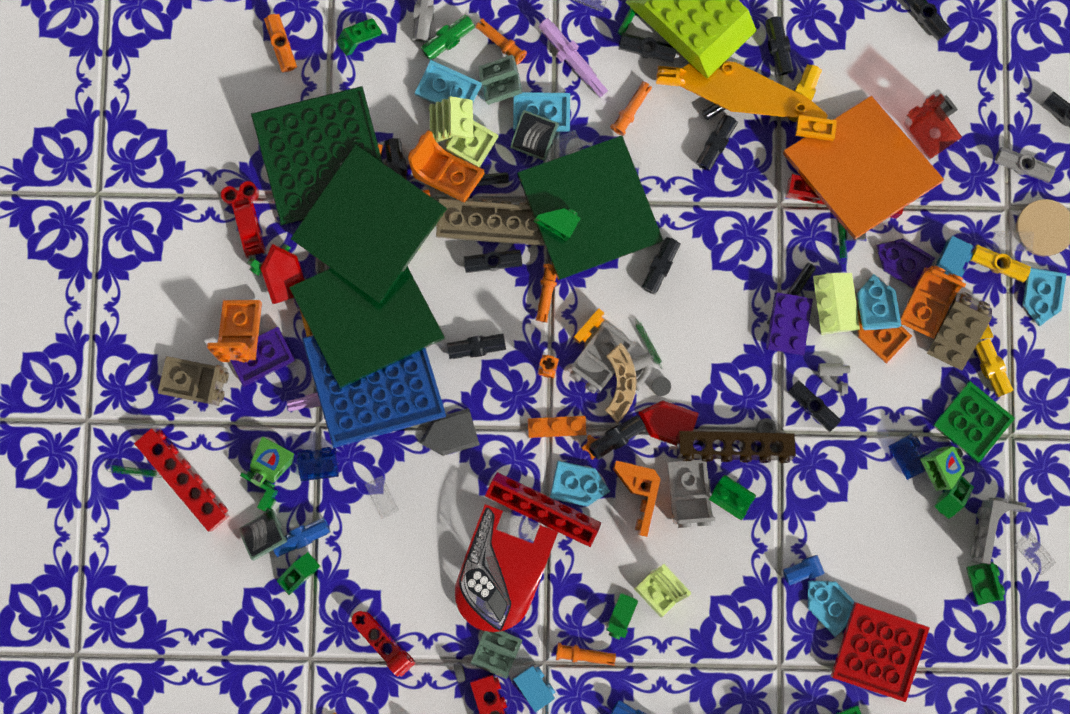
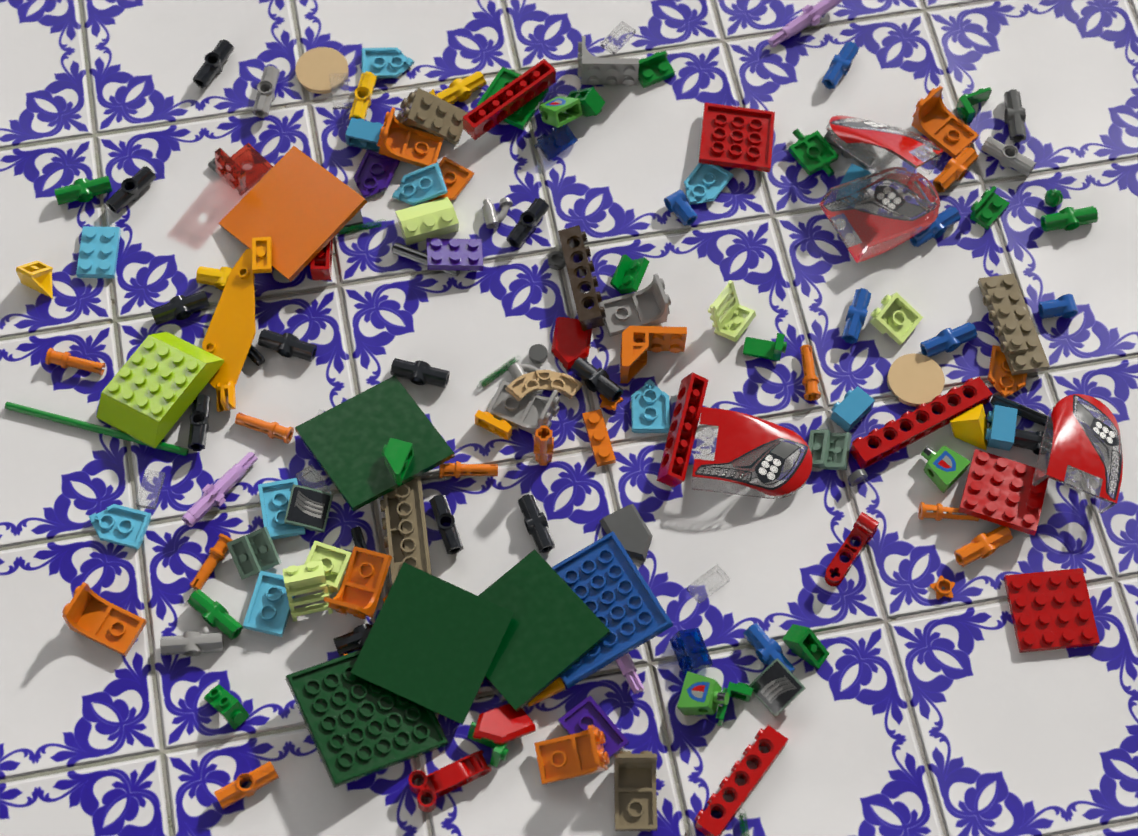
camera: 105 degrees left, 20 degrees down
(965, 415) = (509, 99): none -> red brick

